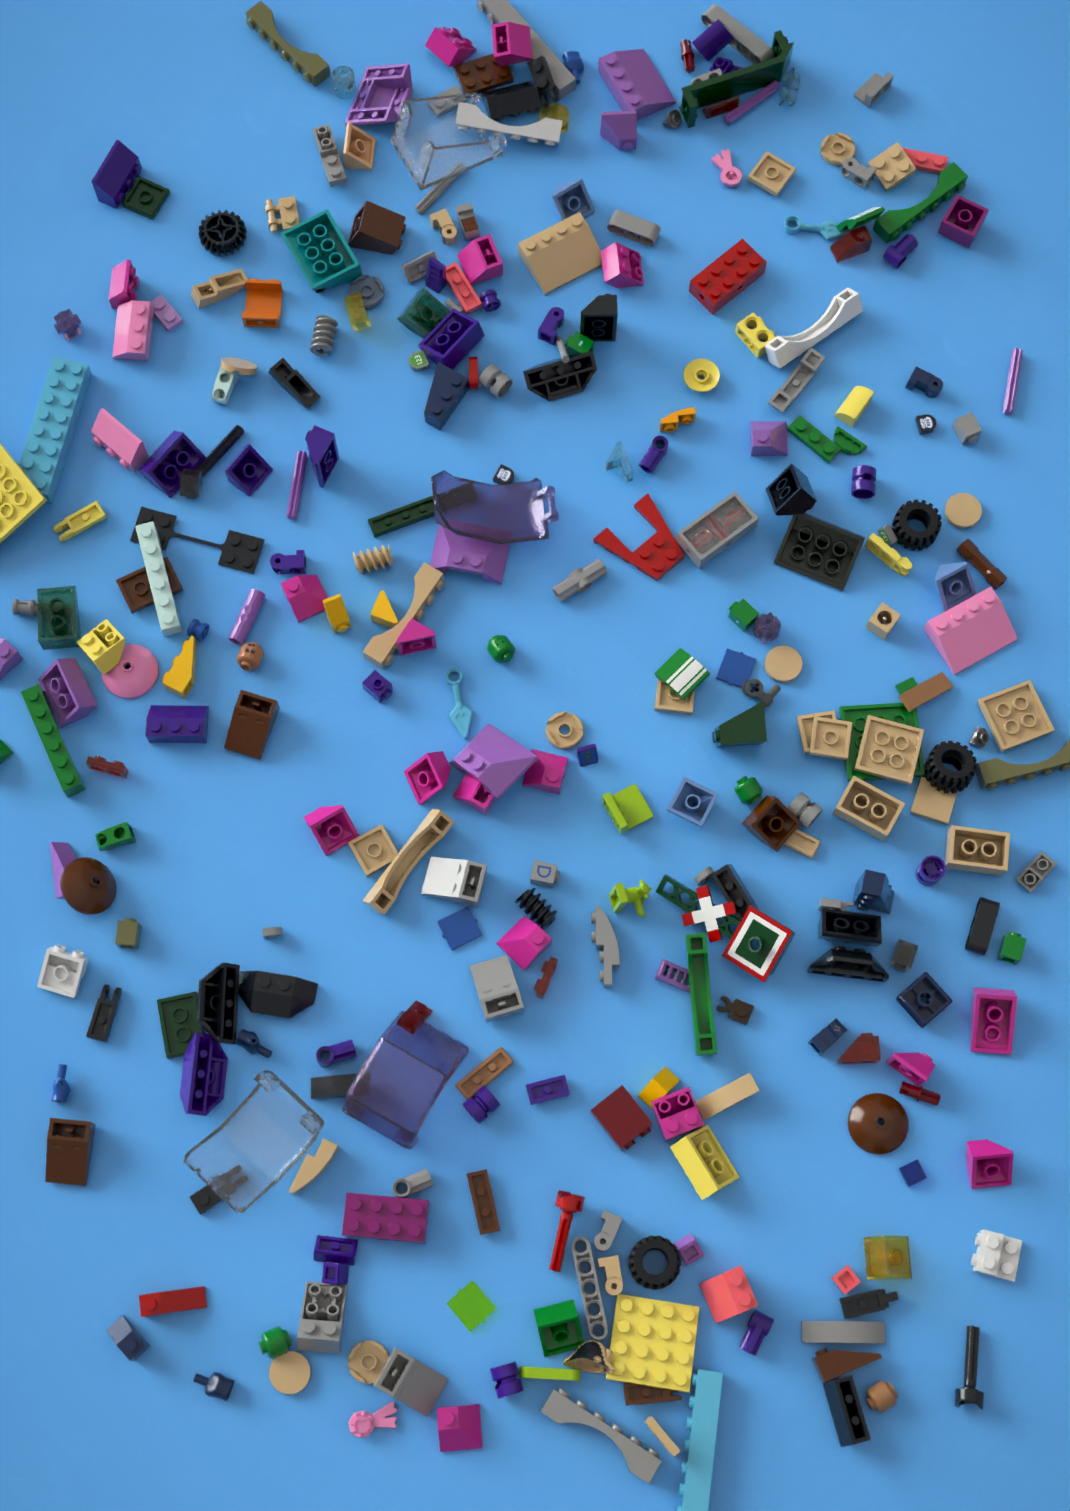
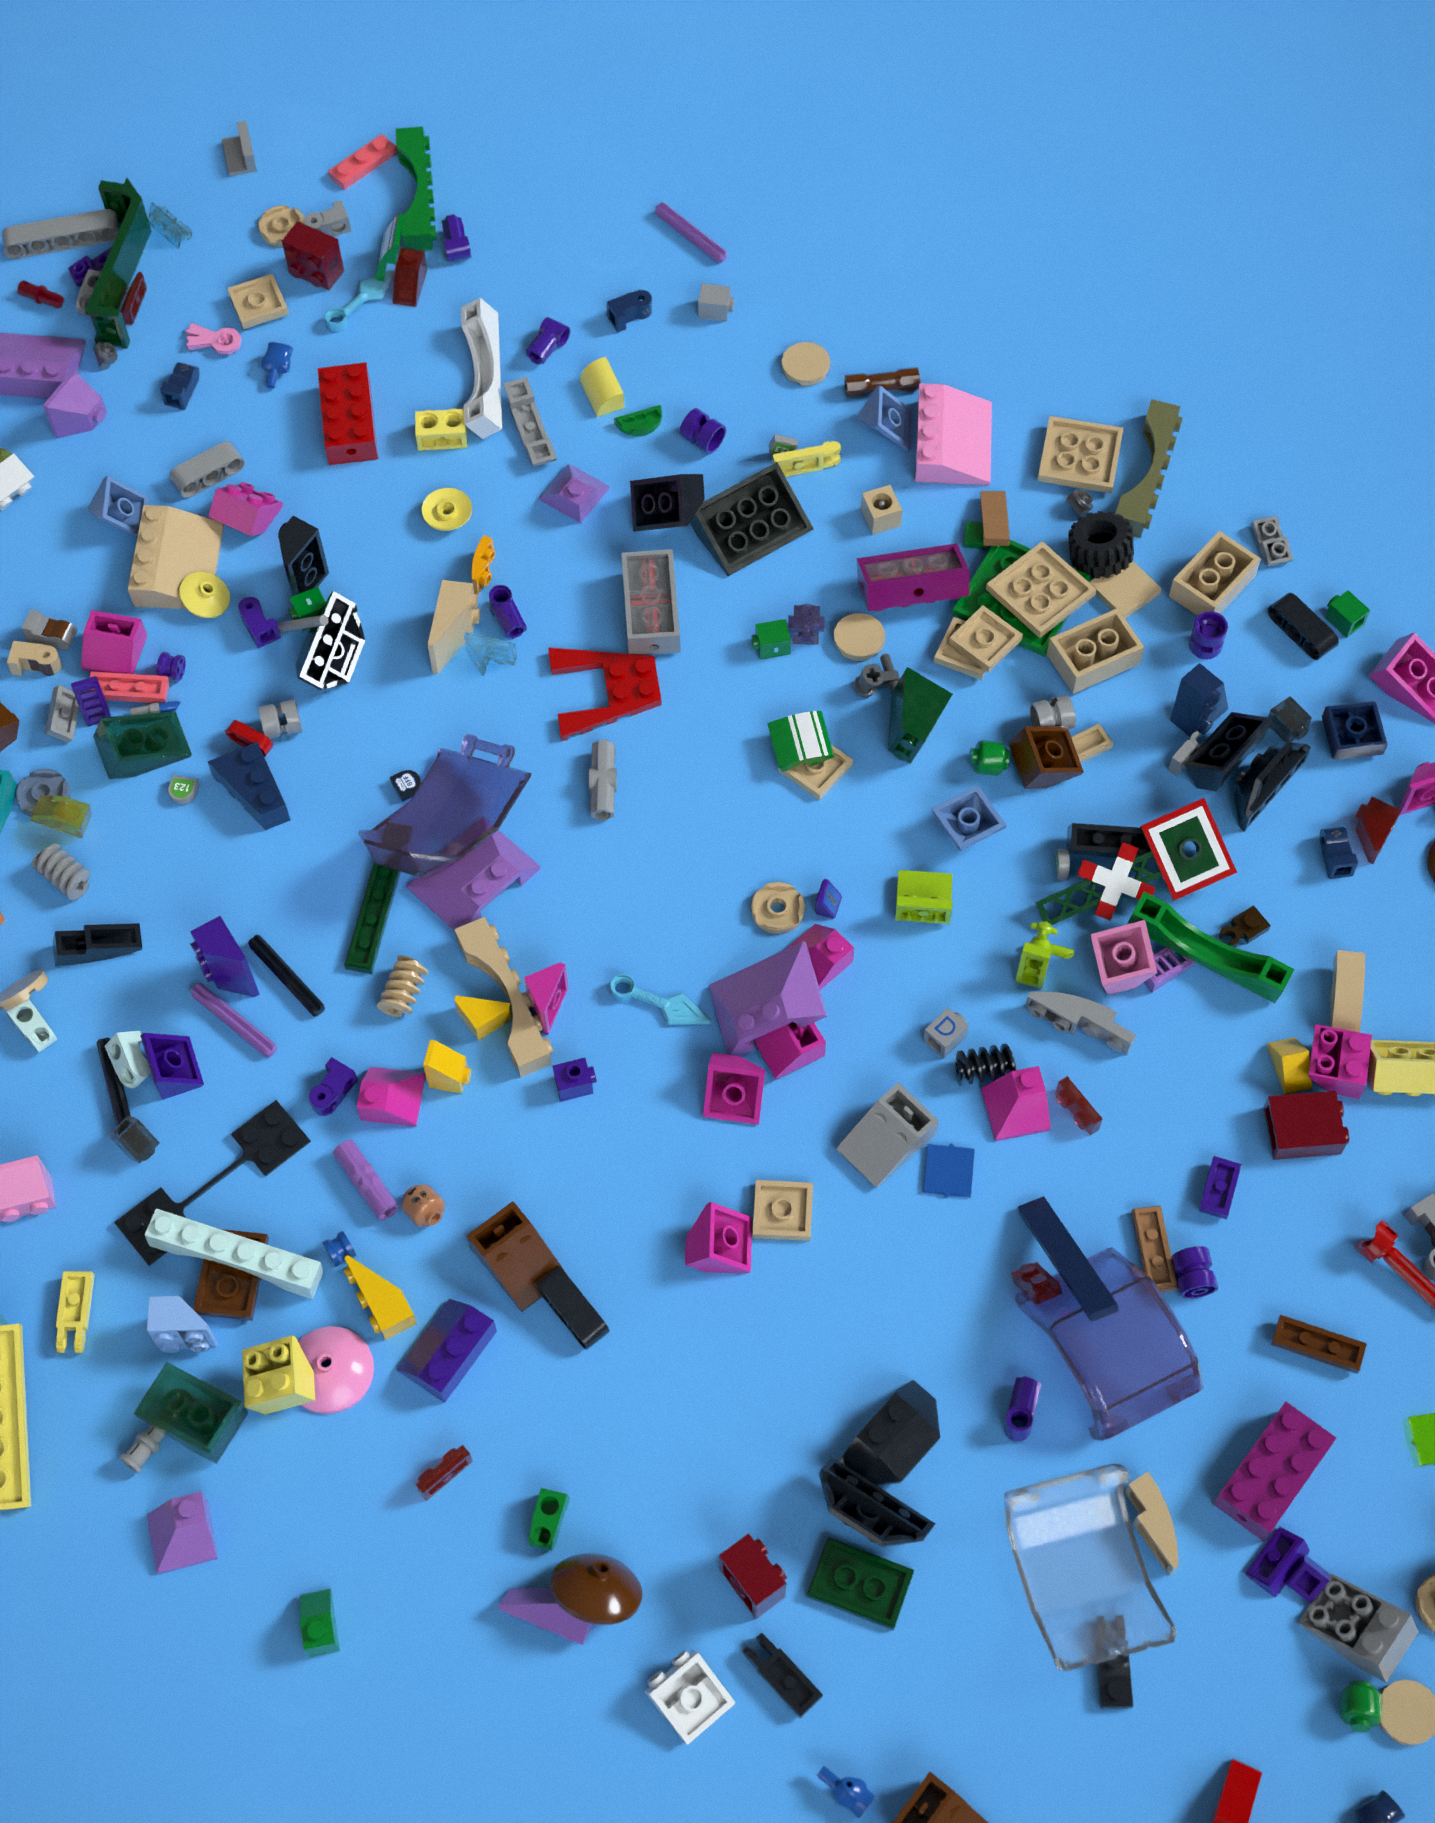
camera: 55 degrees left, 10 degrees down
(52, 741) = (325, 1515): green arch -> none
(67, 691) = (301, 1464): medium lavender slope -> none
(99, 578) = (177, 1326): none -> light blue slope
(128, 934) = (693, 1578): olive brick -> none
(145, 963) = (753, 1575): none -> dark red brick
(169, 460) = (83, 1150): dark purple slope -> none
(203, 1075) = (949, 1592): dark purple wedge -> none
(235, 445) = (128, 1058): none -> light aqua leg
(240, 772) = (571, 1307): none -> black beam
(251, 1043) = (945, 1504): dark blue piece -> none
(272, 932) = (810, 1394): light grey tile -> none
(331, 1086) = (1064, 1432): black slope -> none
(341, 494) = (286, 975): none -> black axle
(389, 884) = (848, 1223): tan arch -> none
(414, 1182) = (1247, 1413): light grey piece -> none
(434, 1025) = (1068, 1259): none -> dark blue tile
(452, 339) = (187, 732): dark purple slope -> none
(497, 988) = (1057, 1168): light grey slope -> none
(501, 648) = (627, 913): green head -> none
(543, 291) = (200, 602): none -> light yellow dish
(628, 427) = (453, 616): none -> tan slope
(658, 946) = (1124, 957): none -> bright pink slope
(681, 174) = (180, 384): none -> dark blue leg
(713, 40) = (47, 255): dark purple brick -> none
(735, 213) = (276, 361): none -> blue piece
(735, 668) = (829, 687): blue piece -> none
(751, 102) = (153, 269): medium lavender axle -> none
(814, 439) = (611, 450): green plate -> none
(822, 181) = (313, 256): none -> dark red brick
(842, 668) = (913, 577): none -> magenta brick
(870, 351) = (549, 336): none -> dark purple piece
(892, 166) = (351, 185): tan plate -> none
(923, 513) = (793, 396): black tyre -> none
(925, 424) = (677, 337): black tile -> none
(963, 221) = (471, 162): magenta brick -> none

